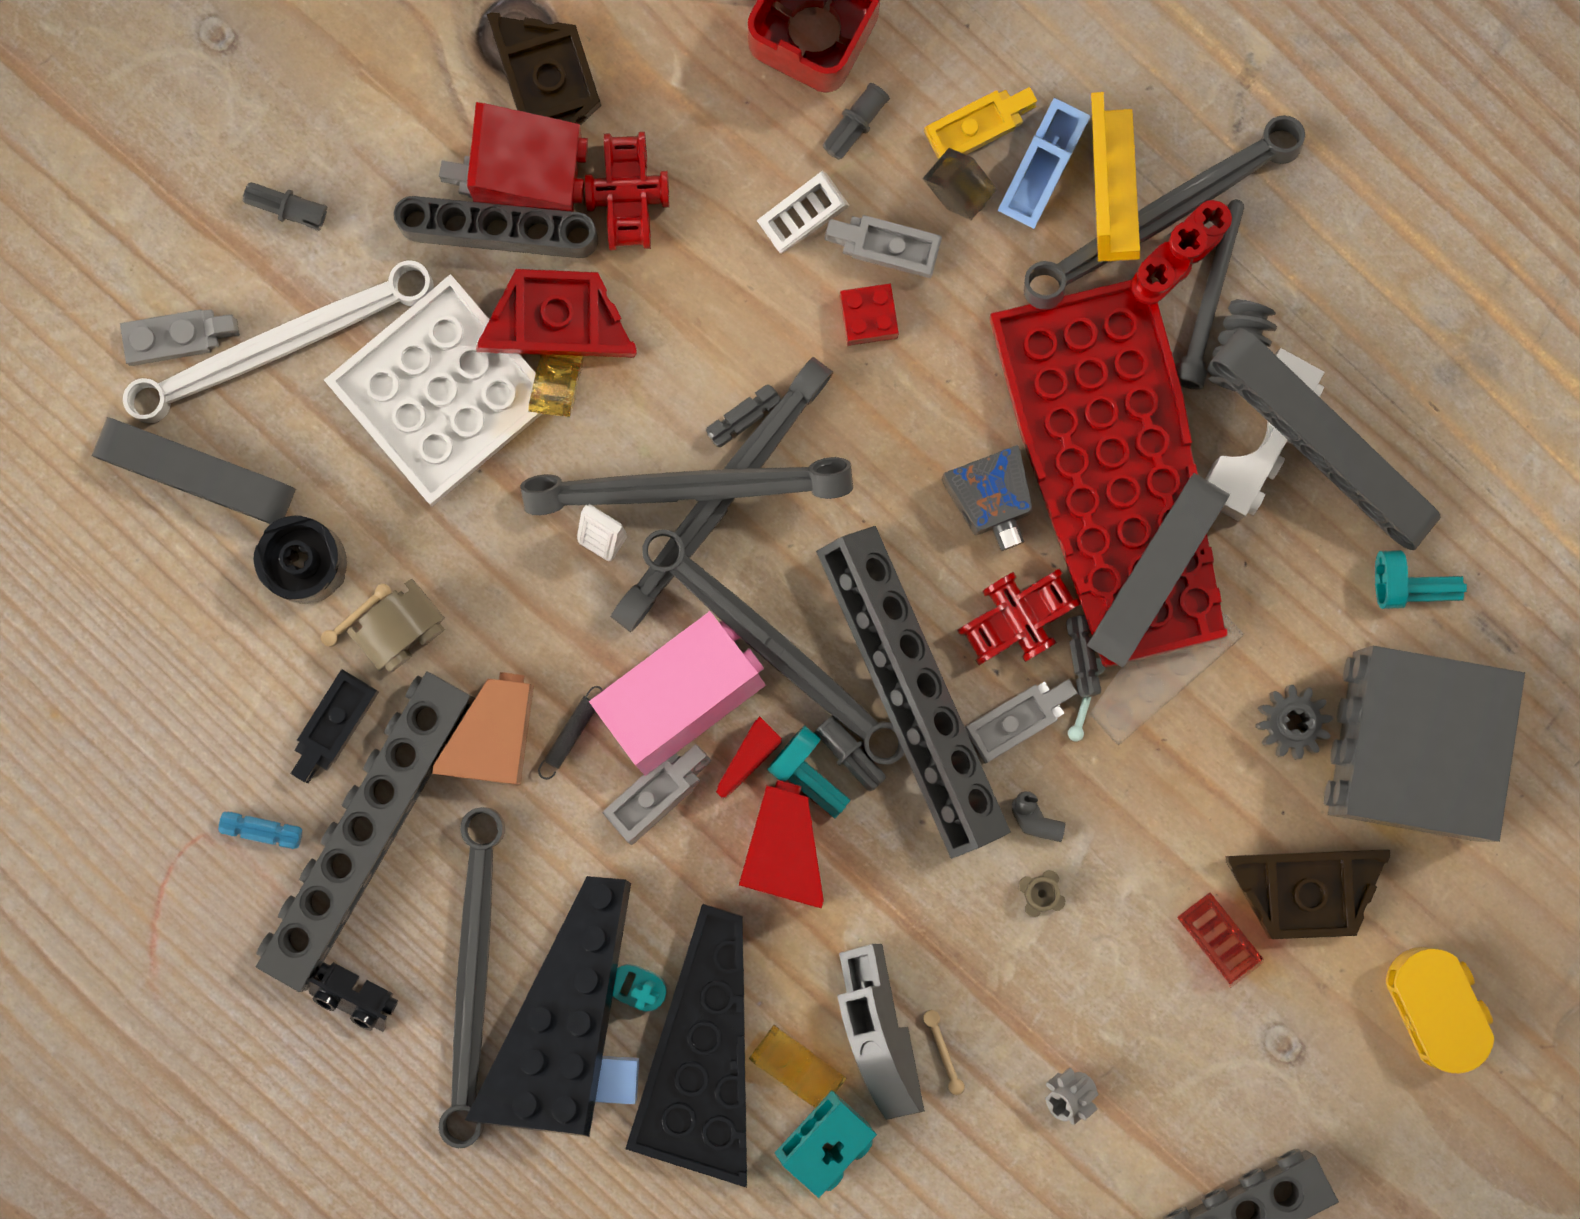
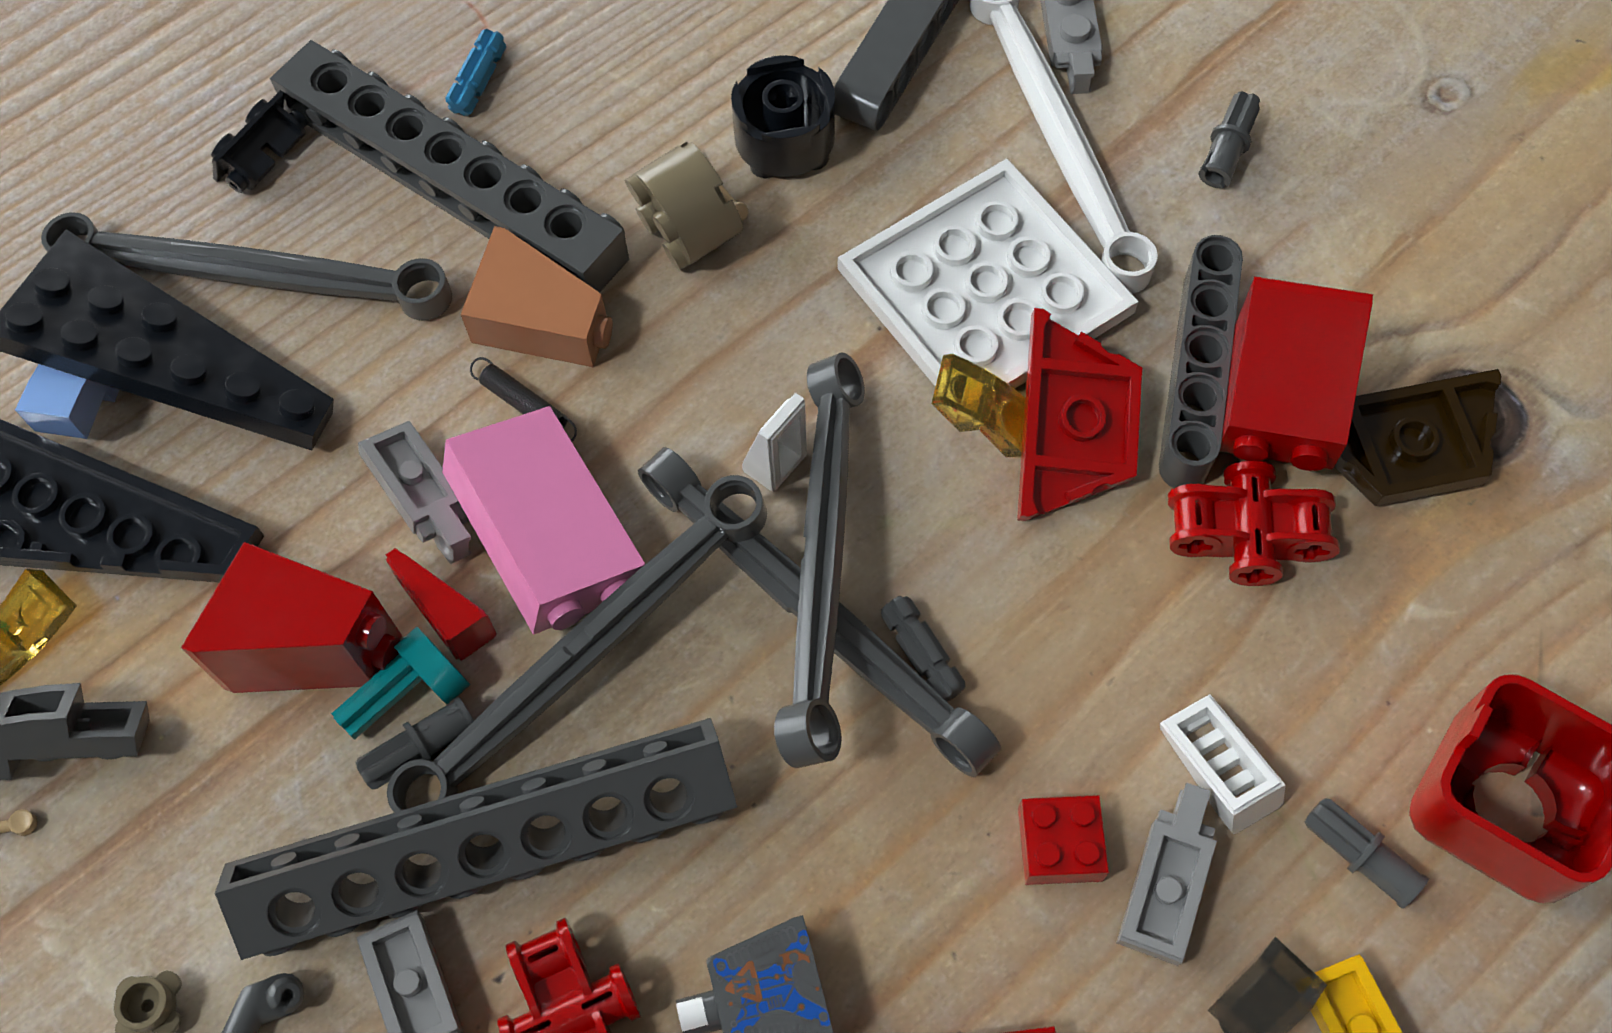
camera: 100 degrees right, 20 degrees down
(332, 724) = (582, 144): black hinge -> none
(646, 991) = (163, 451): teal piece -> none

